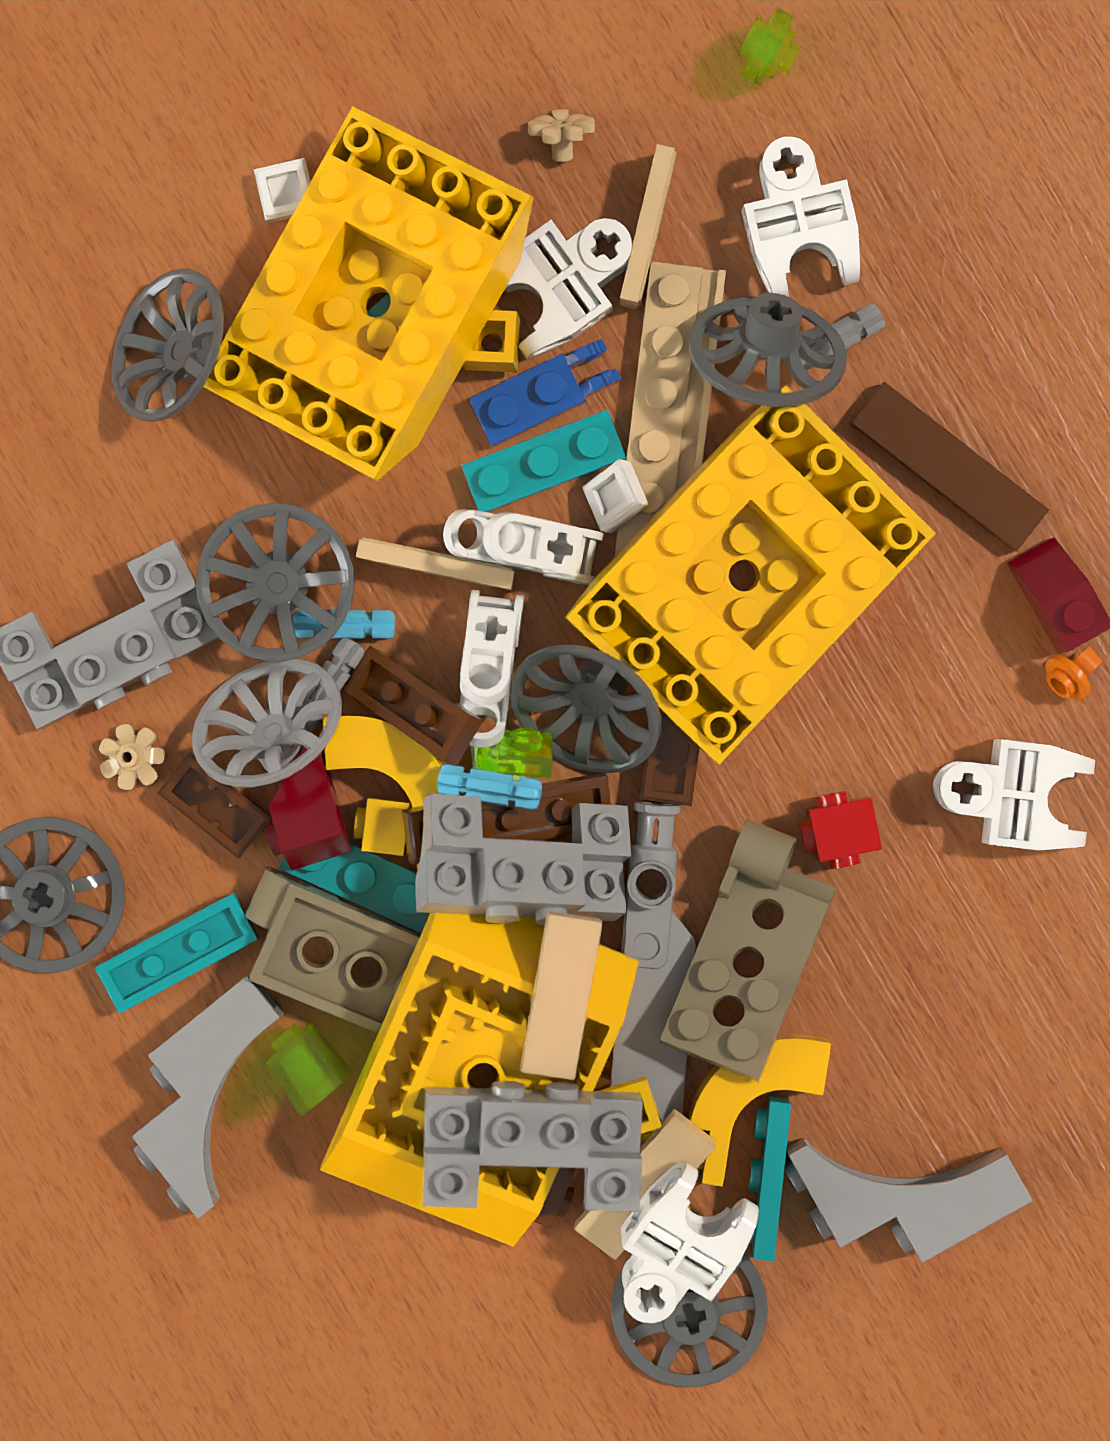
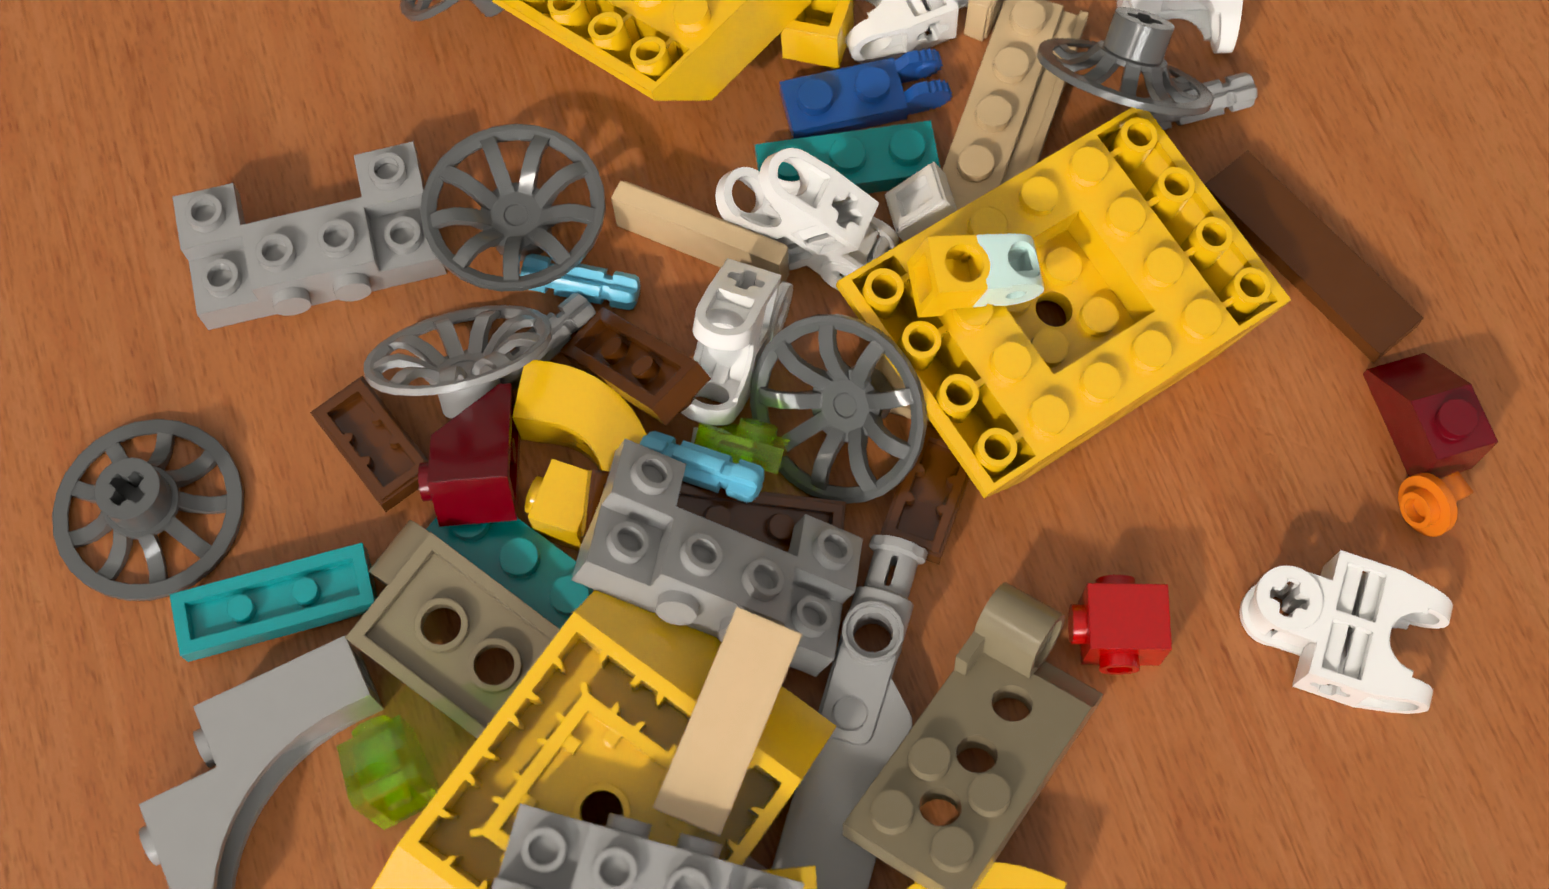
camera: 15 degrees right, 20 degrees down
(142, 756) = (297, 376): tan plant -> none
(676, 597) = (973, 272): none -> leg

